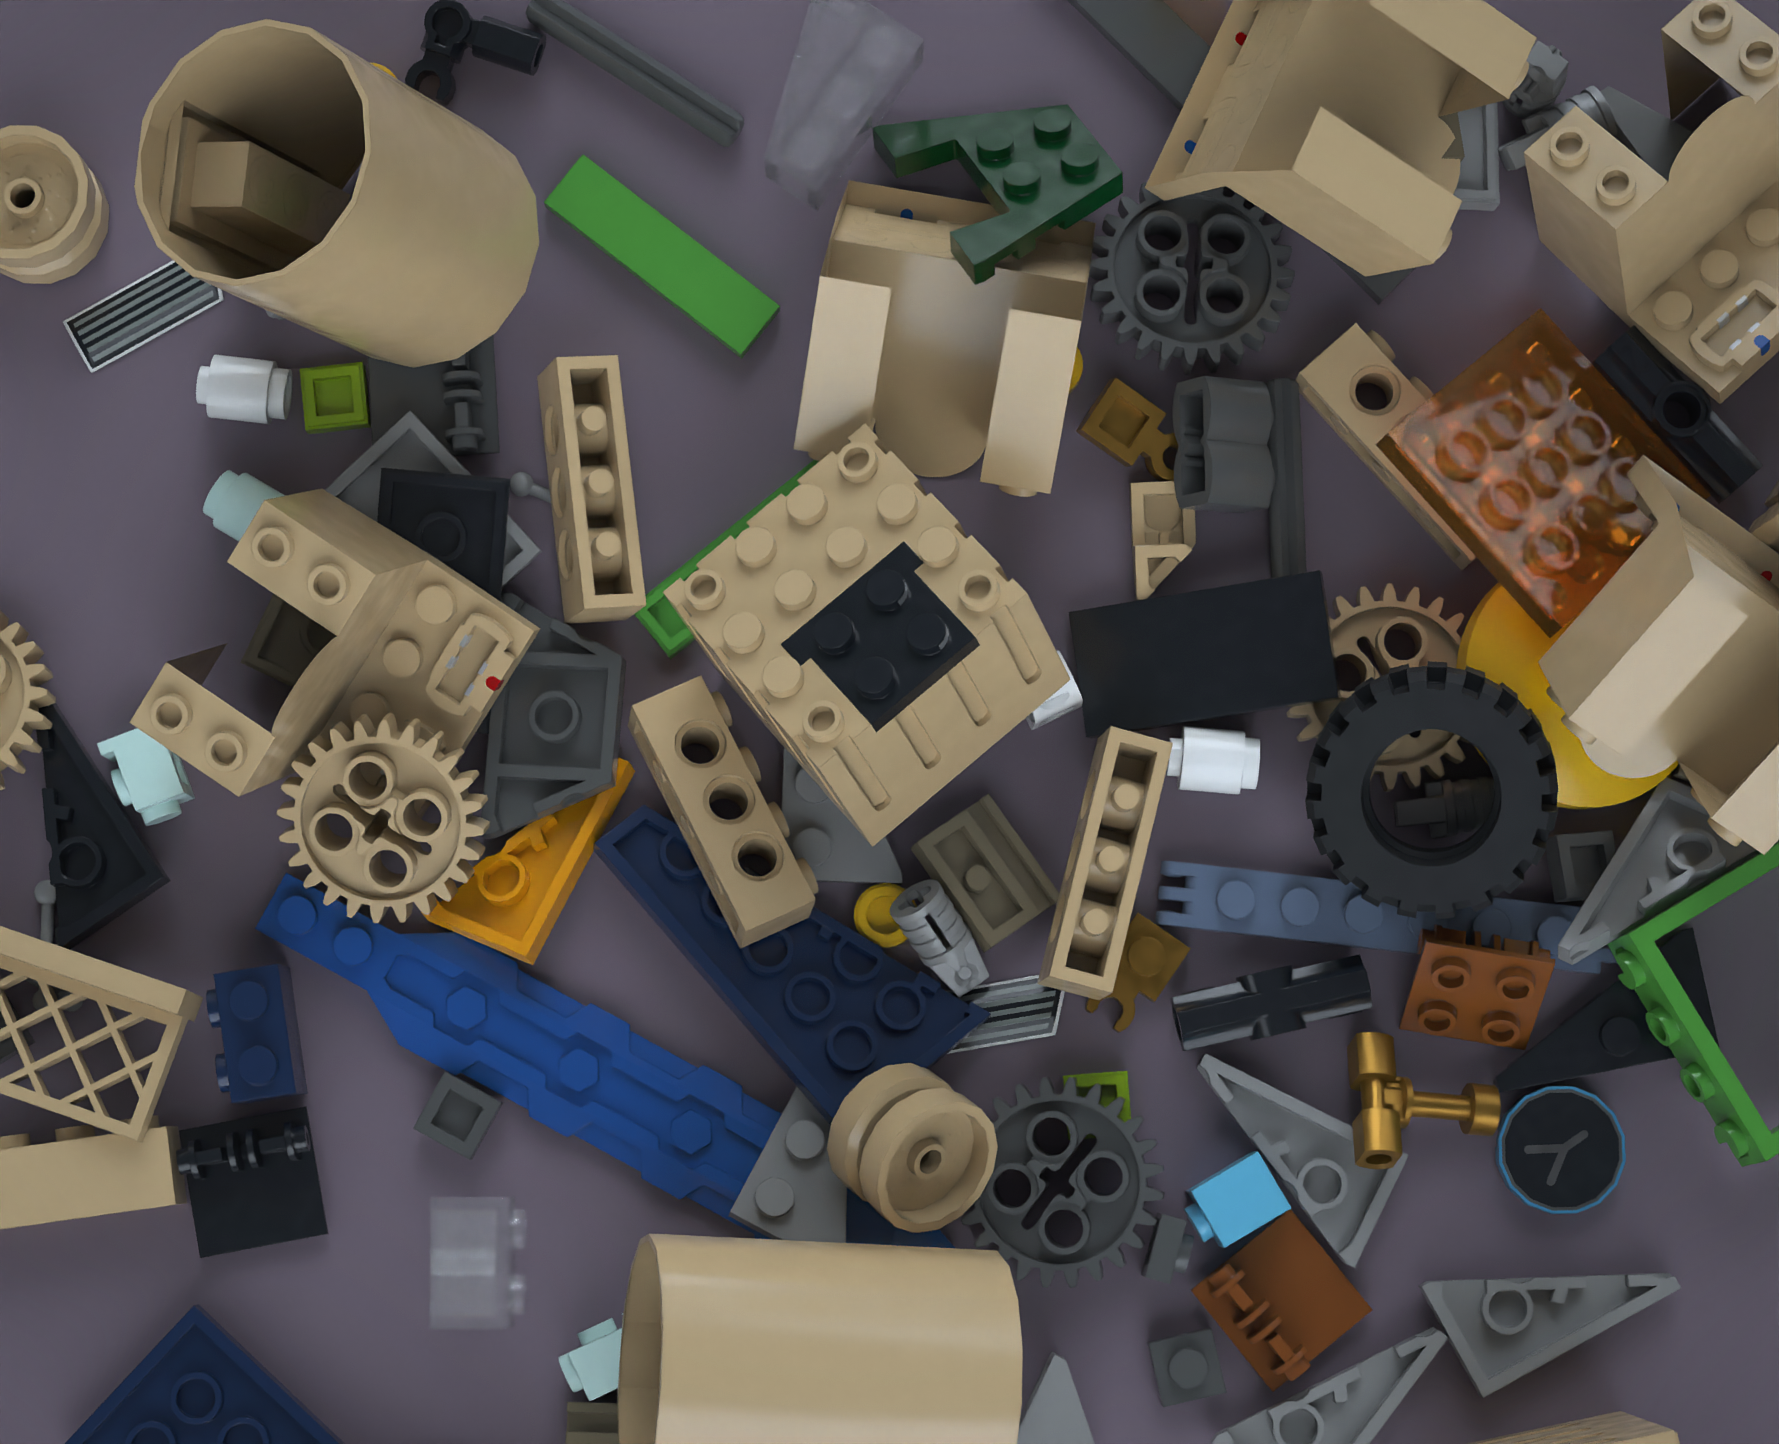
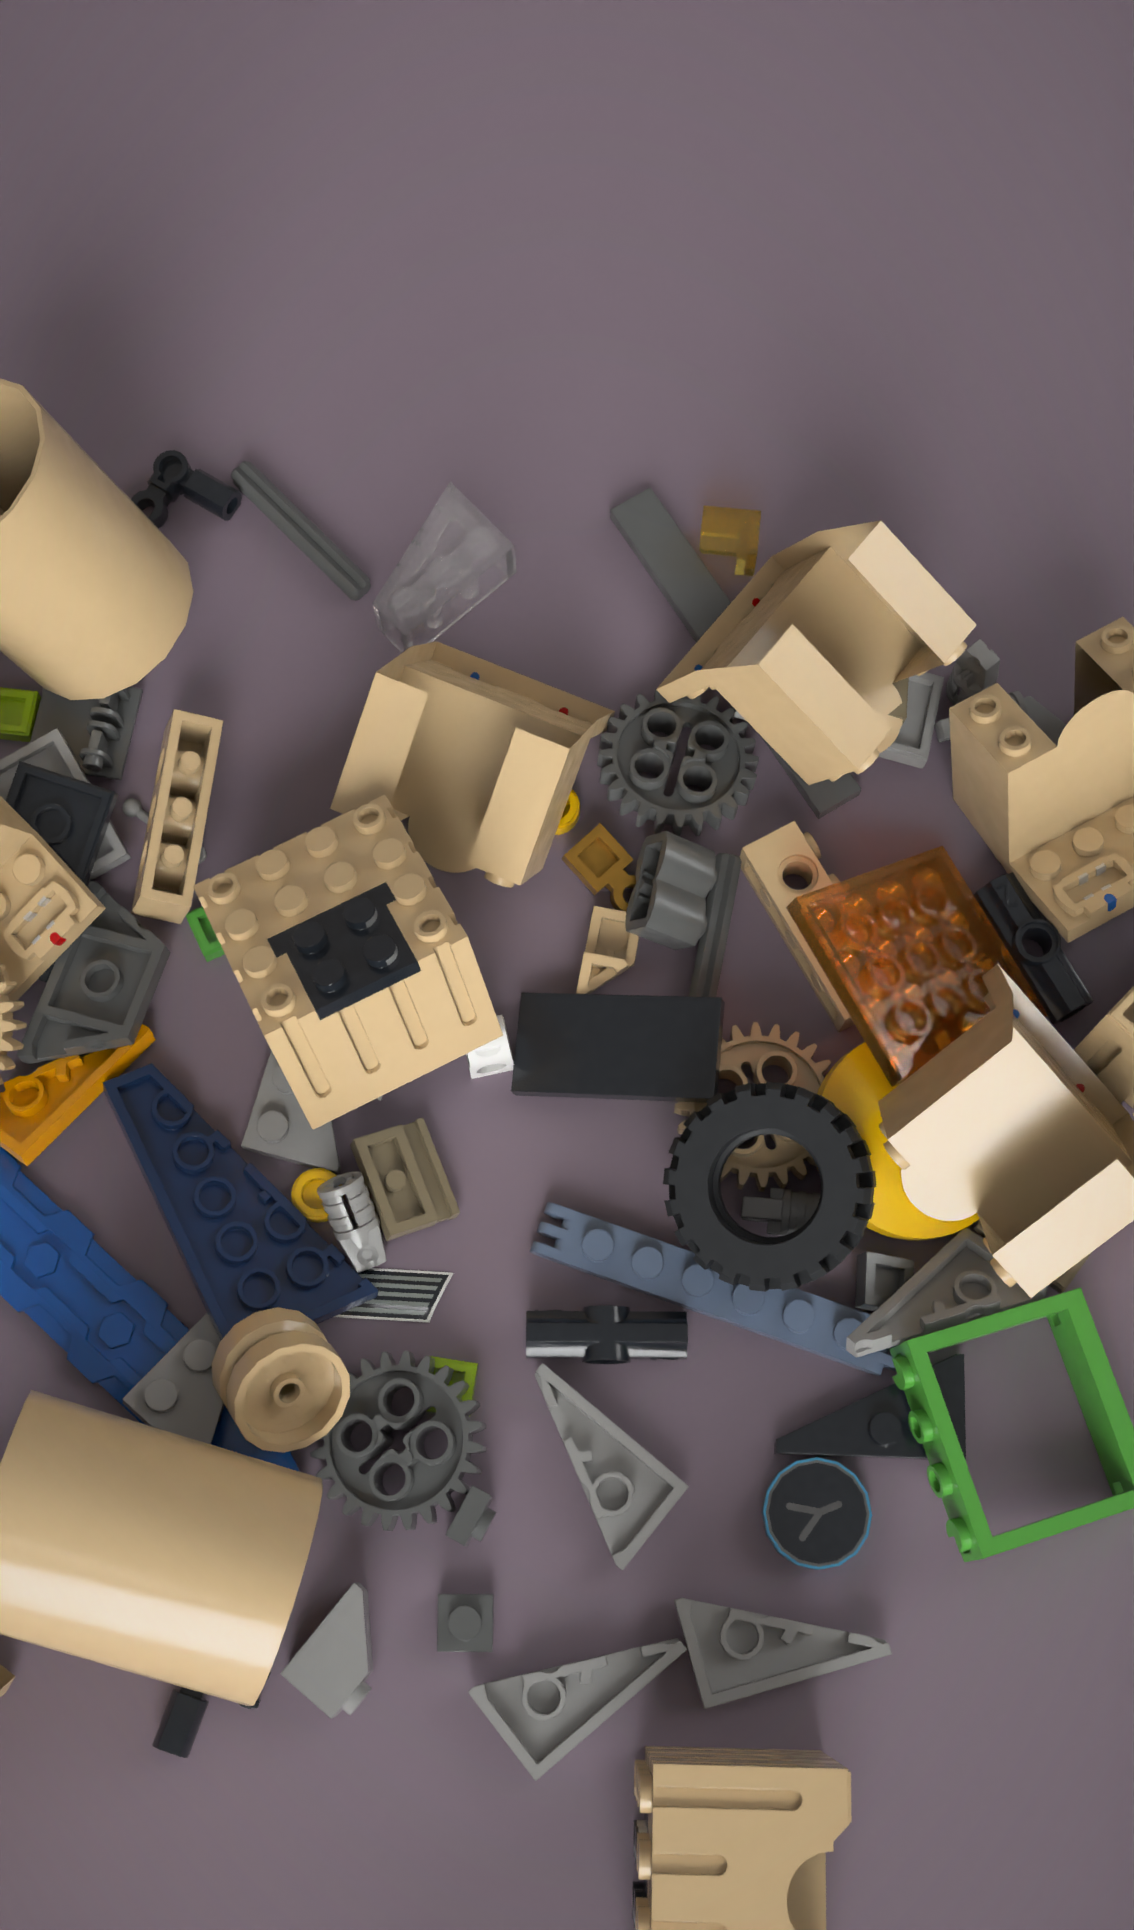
camera: 15 degrees right, 10 degrees down
(662, 256) = (283, 666): bright green tile -> none
(749, 903) = (210, 1156): tan brick -> none
(1029, 164) = (563, 651): dark green wing -> none
(1105, 863) = (496, 1190): tan brick -> none
(1145, 967) = (510, 1280): pearl gold plate -> none
(1214, 760) = (606, 1131): white brick -> none
(1235, 1201) = (537, 1490): medium azure brick -> none
(1281, 1300) = (557, 1585): dark orange hinge -> none
(1391, 1102) = (683, 1438): pearl gold bar -> none
(1477, 990) = (775, 1361): dark orange hinge -> none

